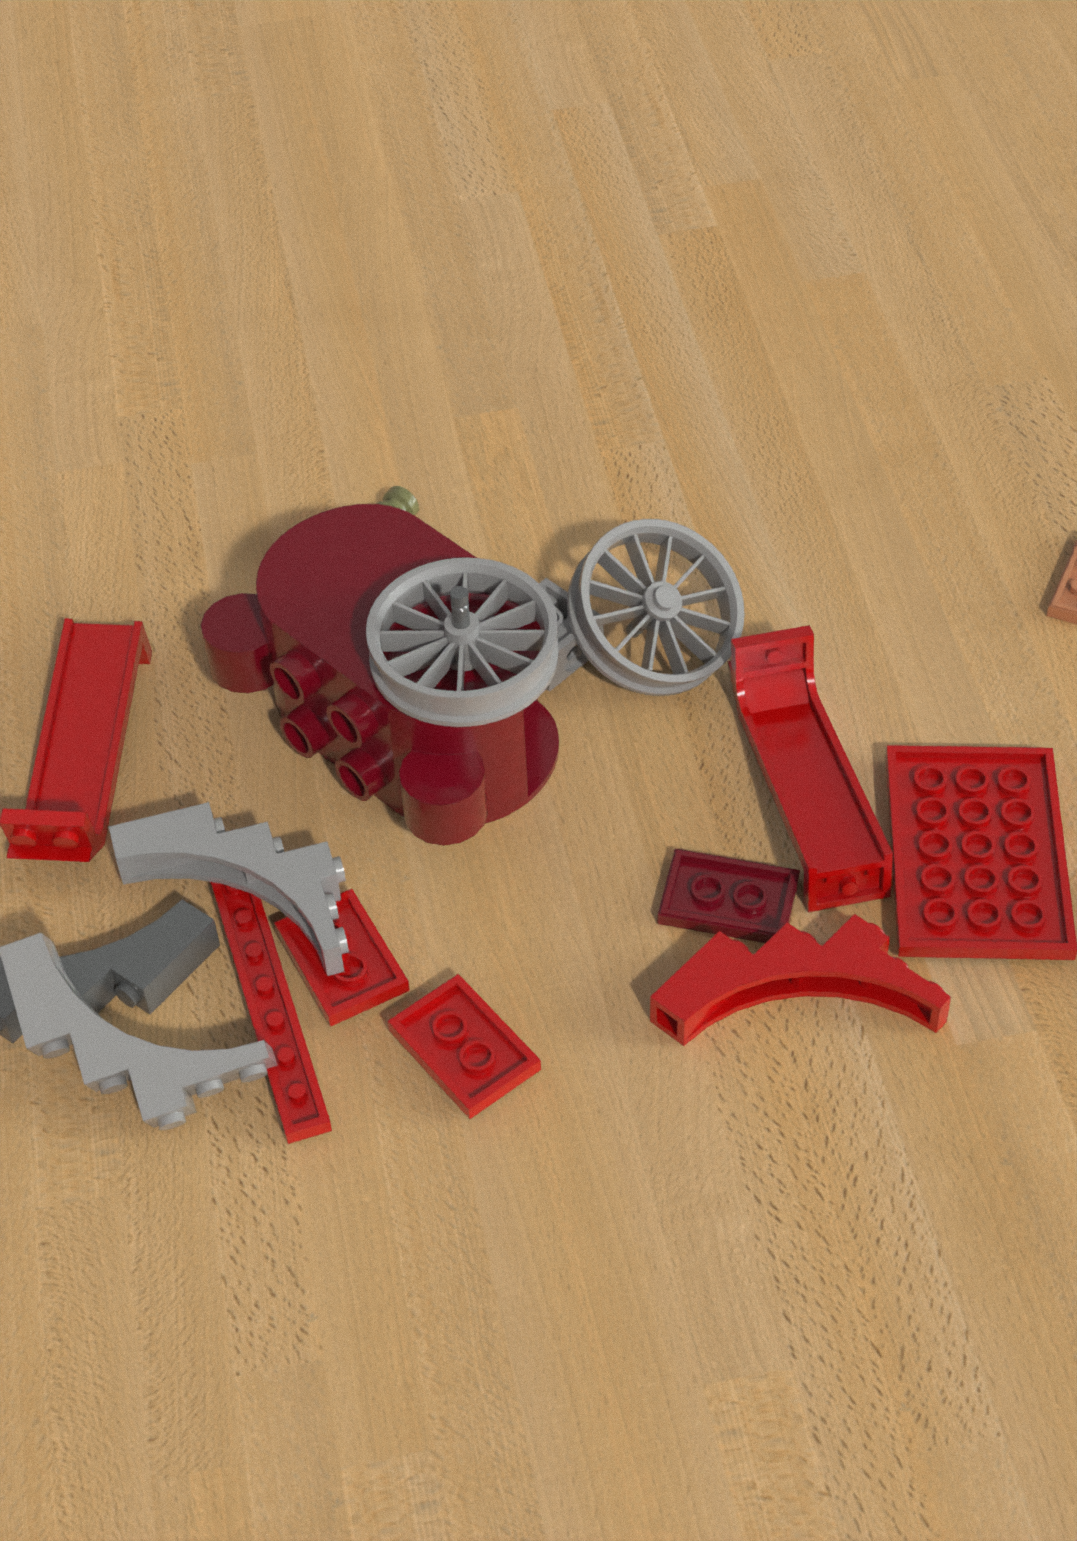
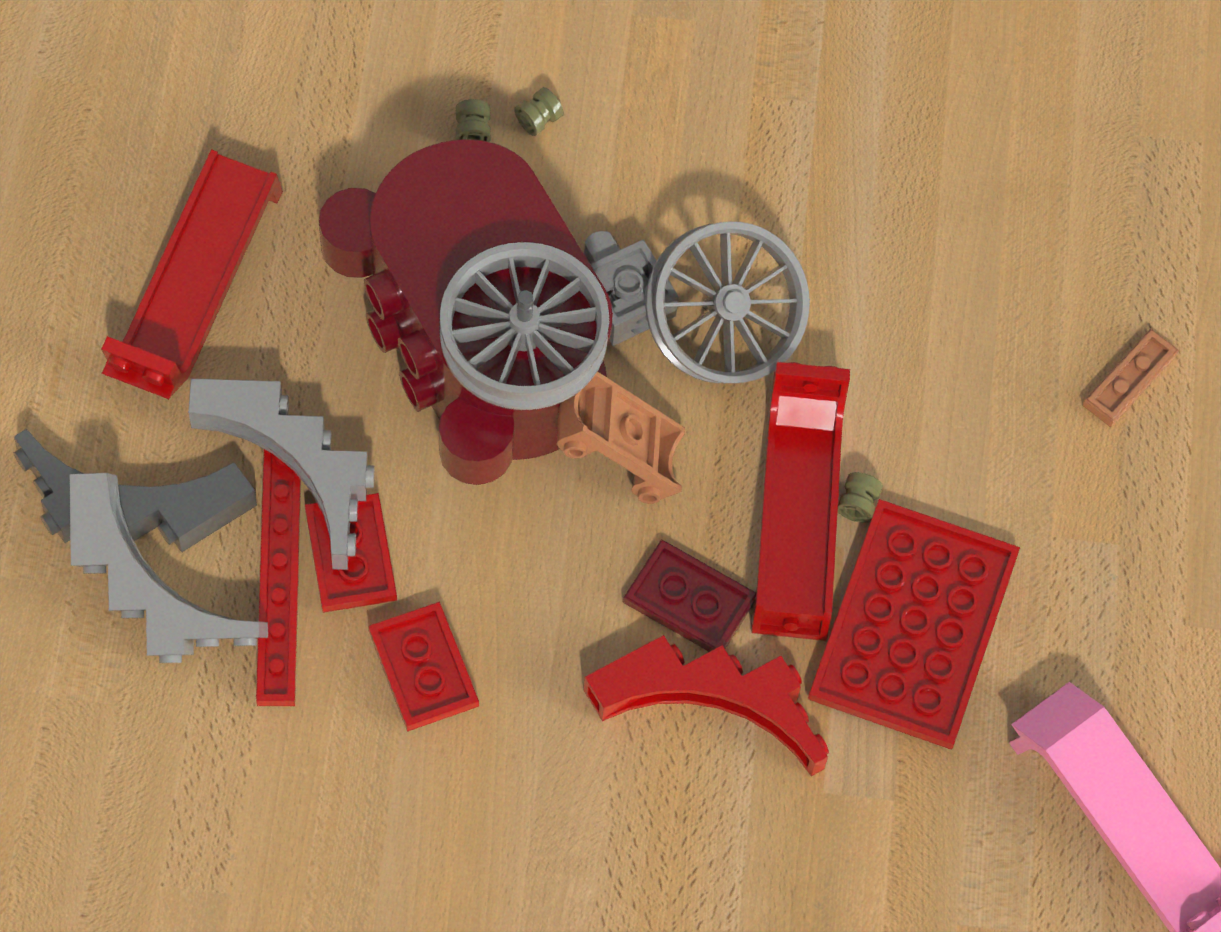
camera: 10 degrees right, 15 degrees up
(569, 729) = (624, 430): none -> nougat piece
(866, 750) = (859, 497): none -> olive wheel

